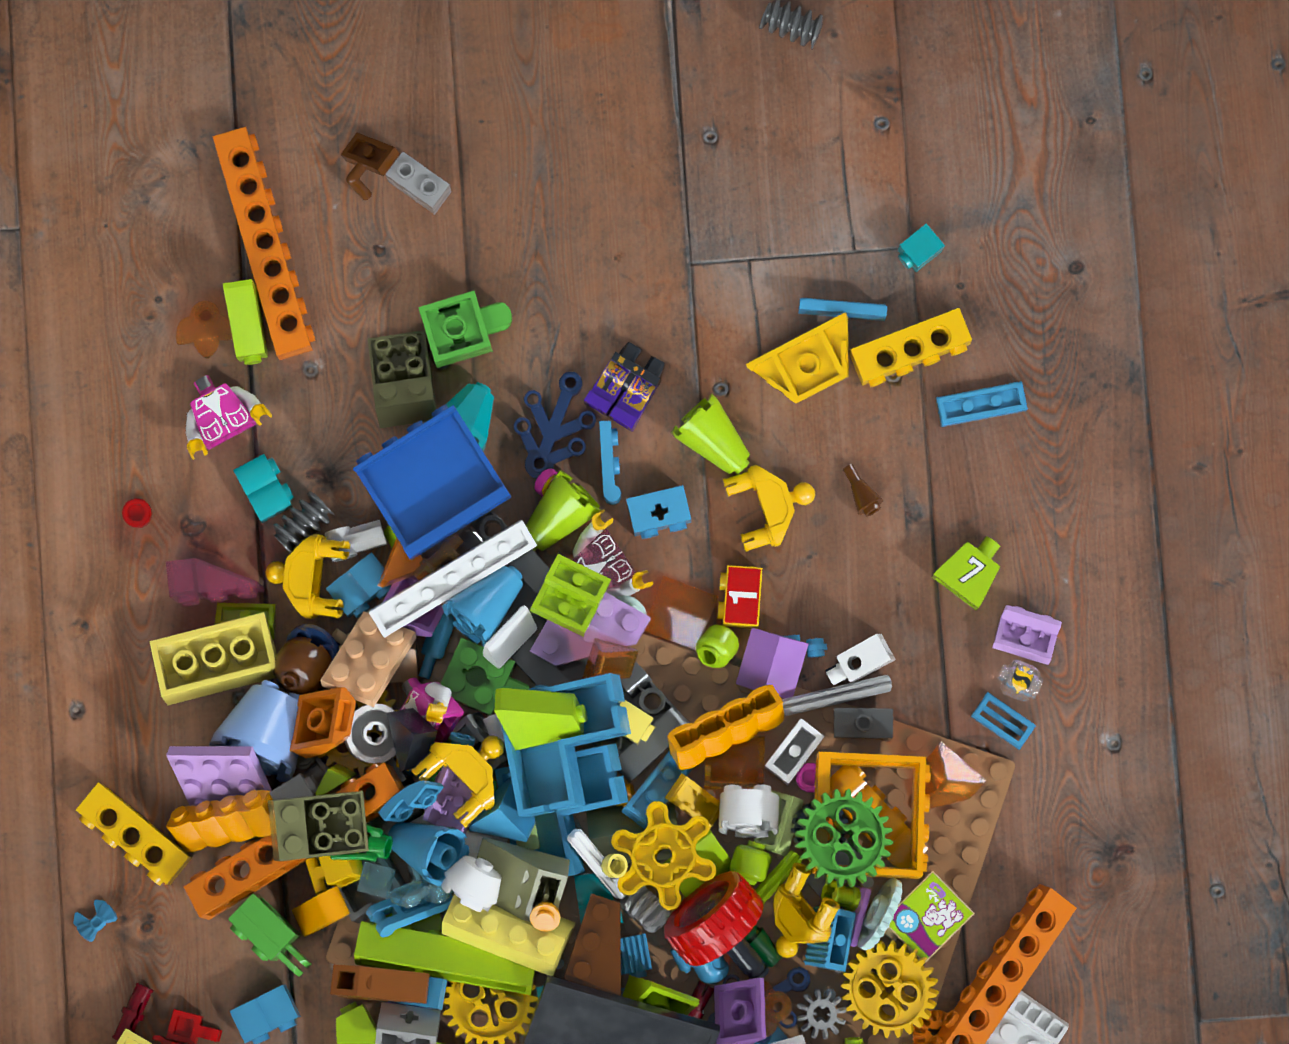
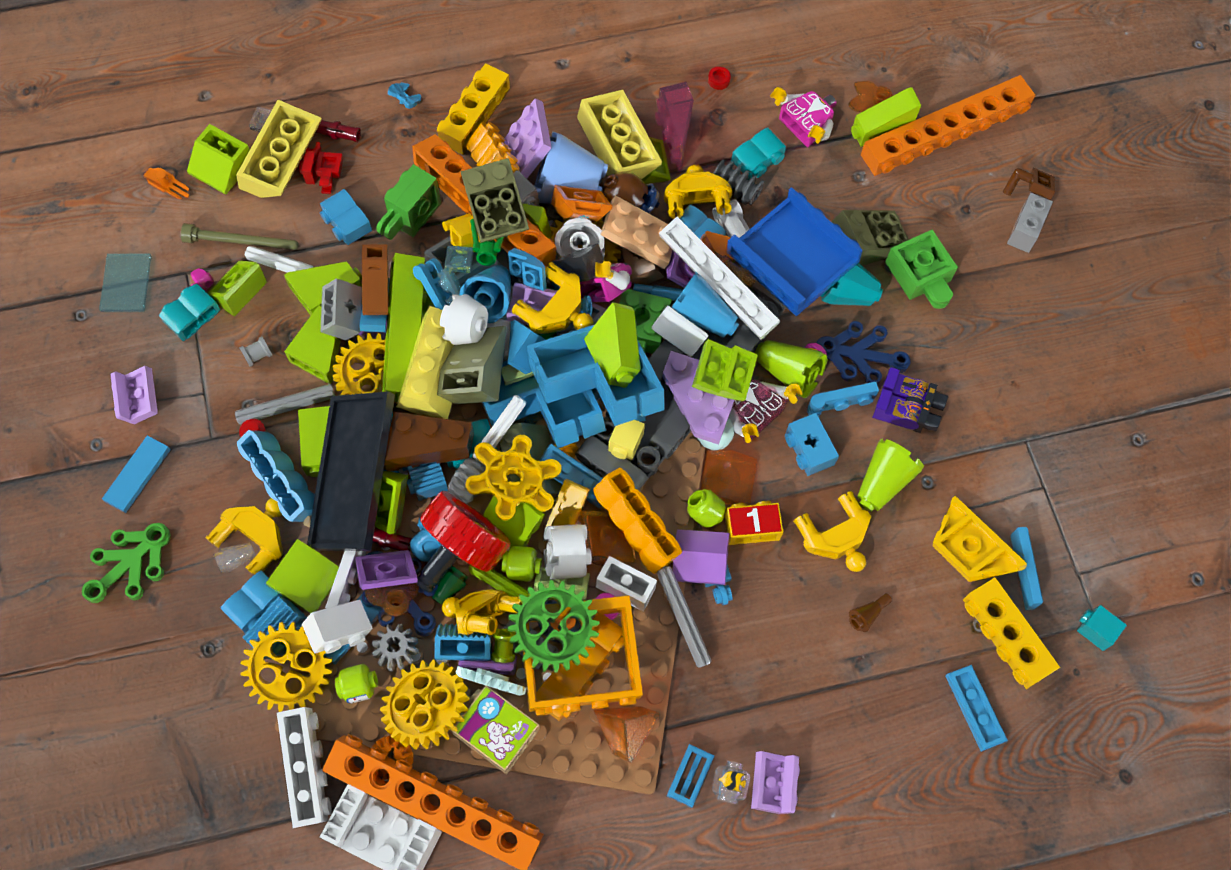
camera: 75 degrees right, 15 degrees down
(320, 911) = (430, 234): light orange beam -> none
(545, 916) = (444, 382): light orange plate -> none
(610, 658) = (676, 413): clear orange slope -> none
(616, 868) = (497, 442): light yellow hinge -> none
(863, 723) = (663, 644): dark grey plate -> none
(873, 655) = (721, 634): white torso -> none
(970, 572) = (821, 720): lime torso -> none

